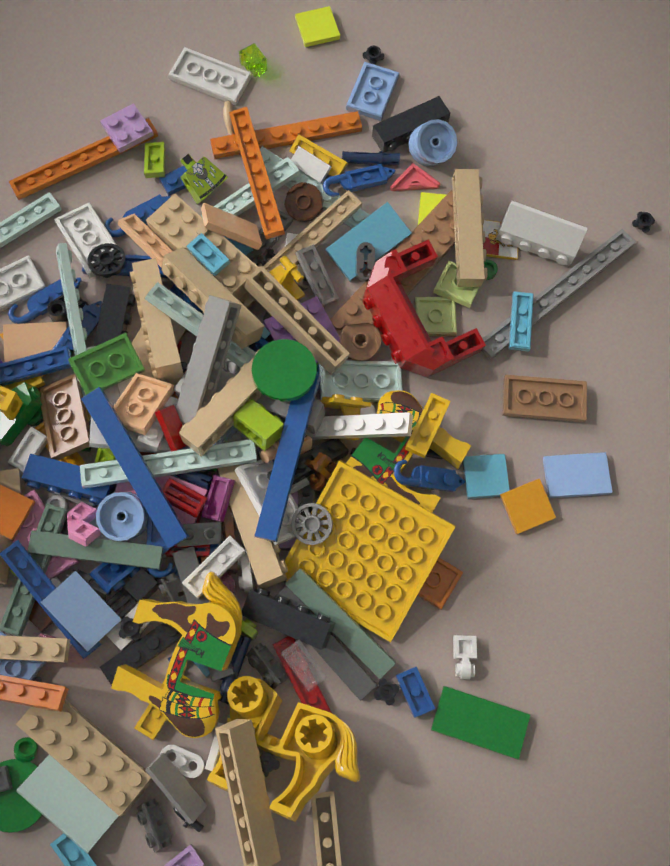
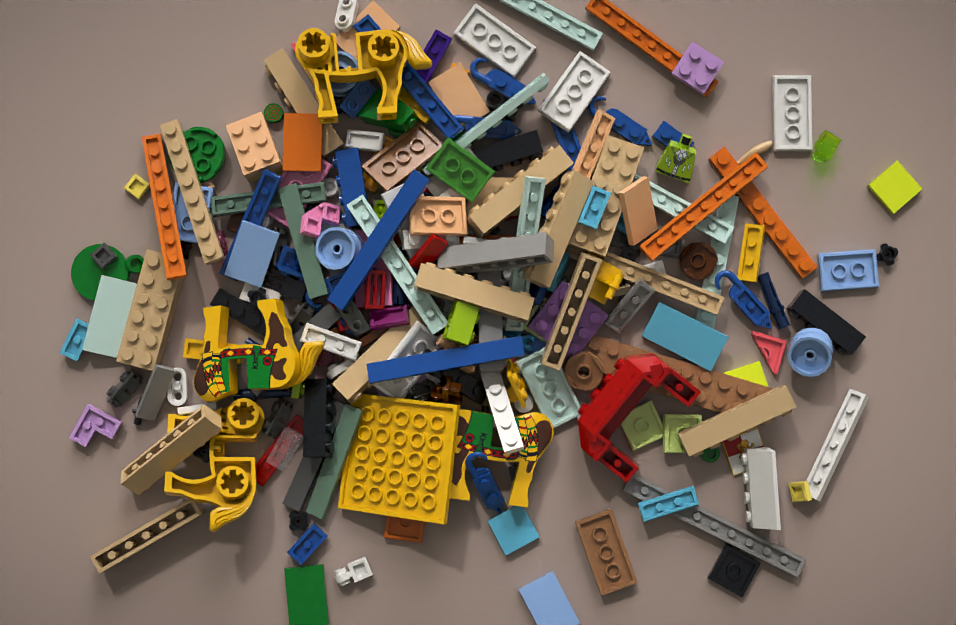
camera: 70 degrees right, 15 degrees up
(106, 260) = (557, 118): black wheel -> none
(154, 160) = (679, 108): lime plate -> none
(284, 370) = (513, 324): green tile -> none
(310, 164) = (738, 249): white tile -> none
(312, 523) = (399, 404): light grey wheel -> none
(360, 261) = (664, 346): dark grey beam -> none
(427, 425) = (526, 463): yellow plate -> none
(526, 163) = (836, 443): none -> white plate
(527, 506) = (501, 574): light orange tile -> none
(557, 206) = (800, 491): none -> light yellow tile
(607, 295) = (734, 570): none -> black tile
(645, 217) = (828, 581): black plate -> none

